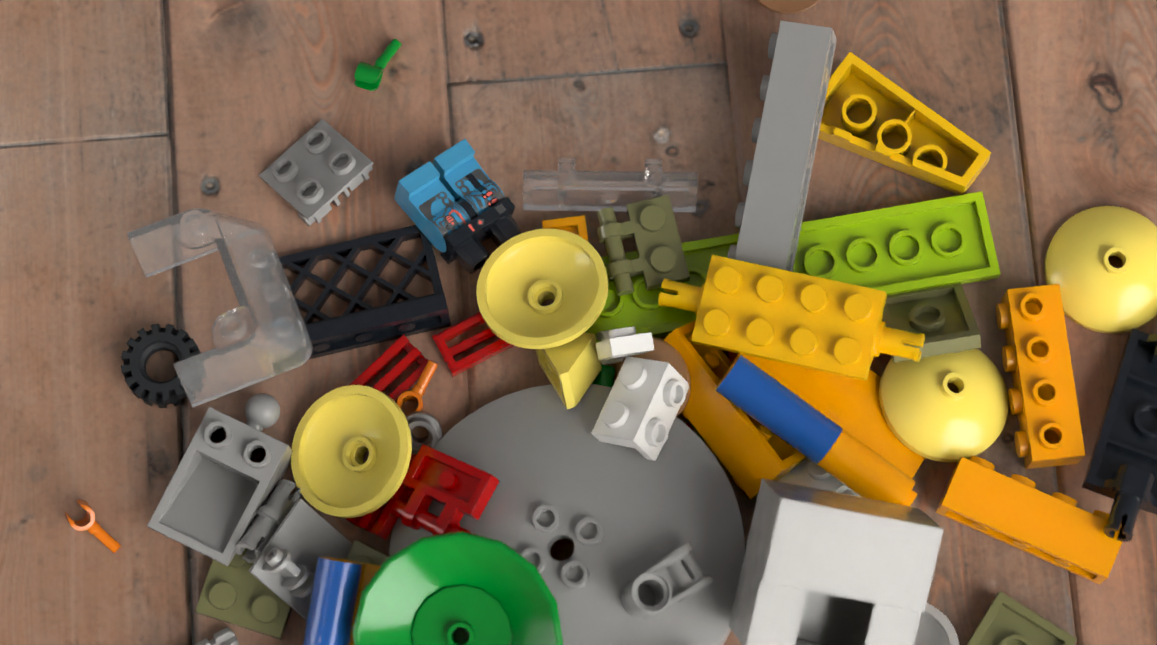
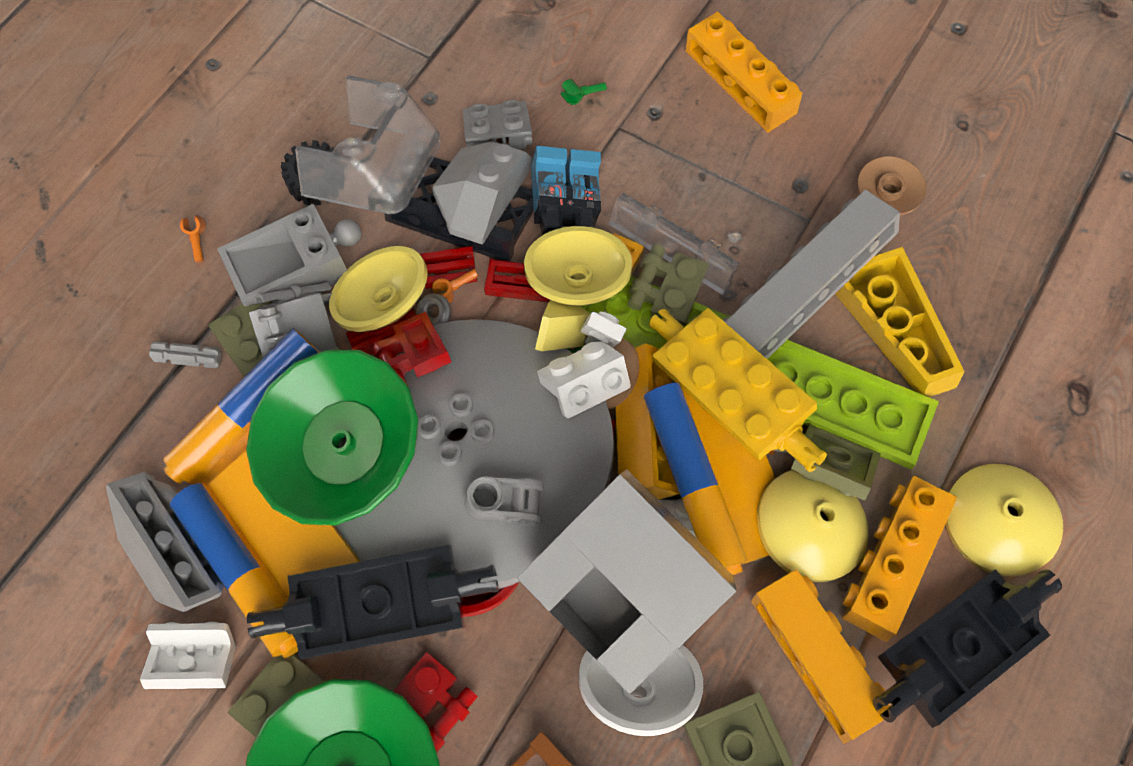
camera: 40 degrees right, 10 degrees down
(368, 267) = (480, 187): none -> light grey wedge

